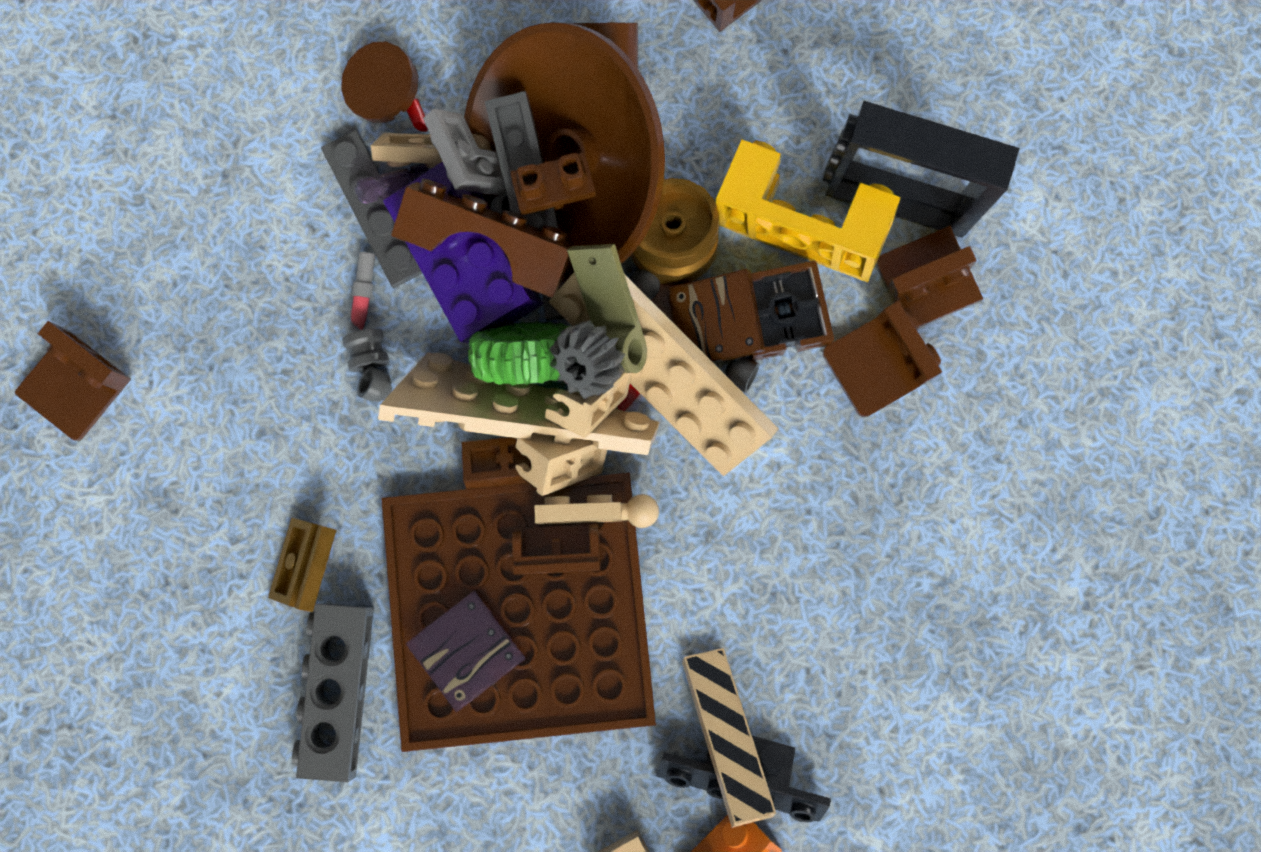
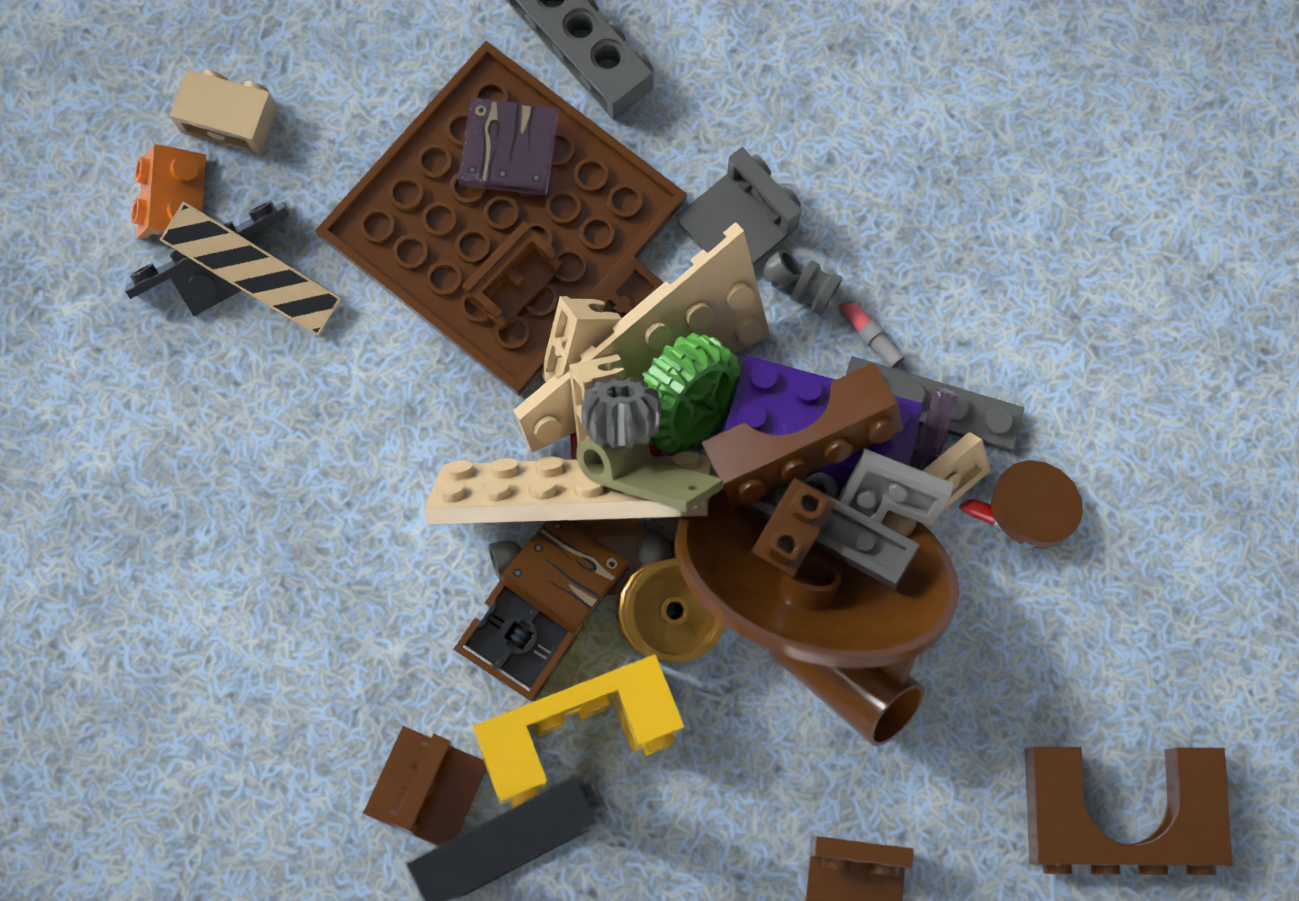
camera: 135 degrees right, 5 degrees down
(71, 383) = (1006, 57): reddish brown bracket -> none
(302, 564) = (694, 93): pearl gold plate -> none
(360, 449) = (749, 199): none -> dark grey bracket
(640, 510) = (511, 331): tan plate -> none
(882, 360) = (401, 676): reddish brown bracket -> none

